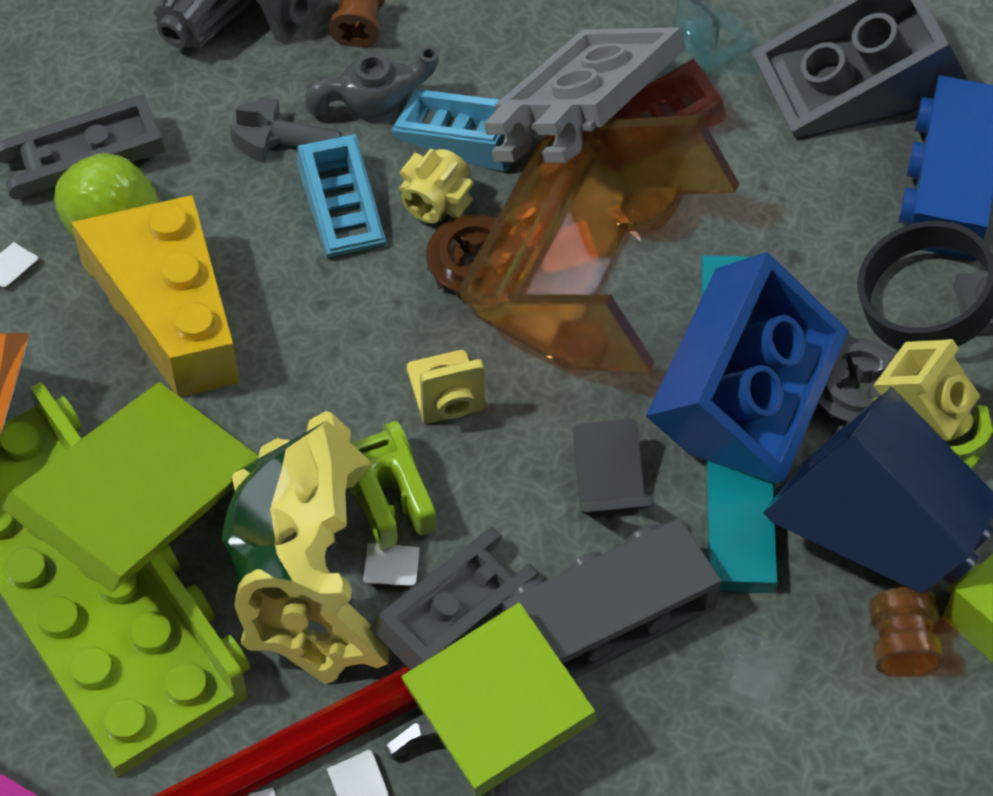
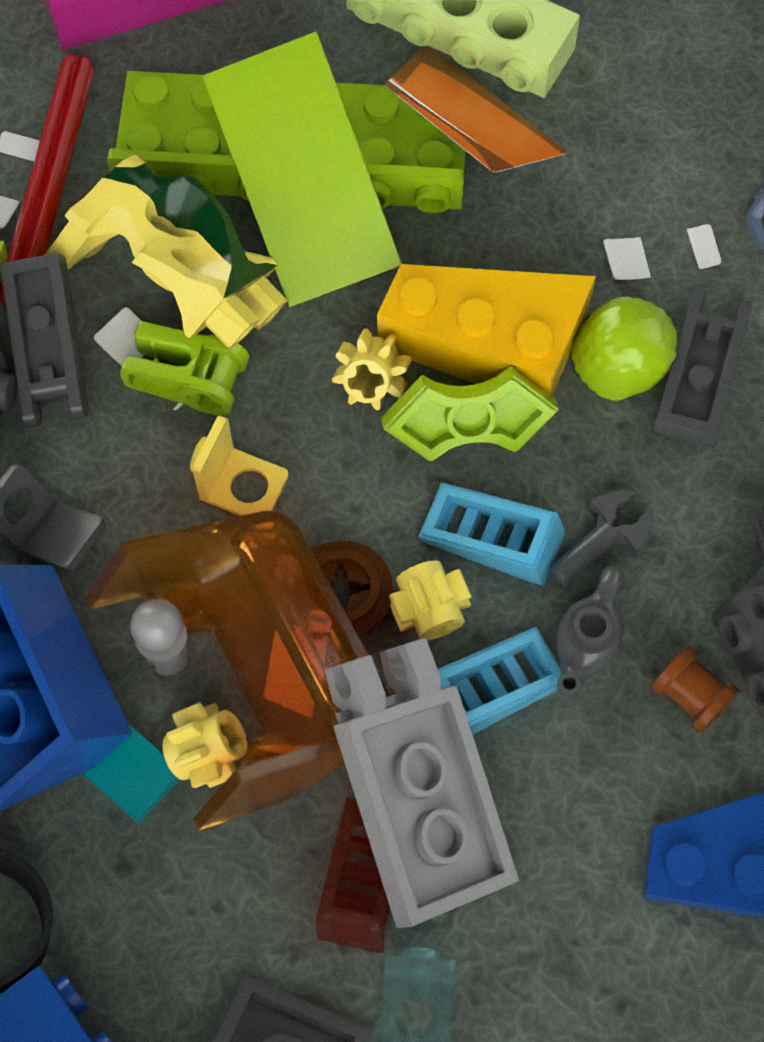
camera: 130 degrees right, 10 degrees up
(260, 252) = (444, 416): none -> lime tile
(275, 345) = (365, 382): none -> light yellow gear
(634, 291) = (160, 636): none -> light grey pin
(675, 240) = (204, 744): none -> light yellow gear

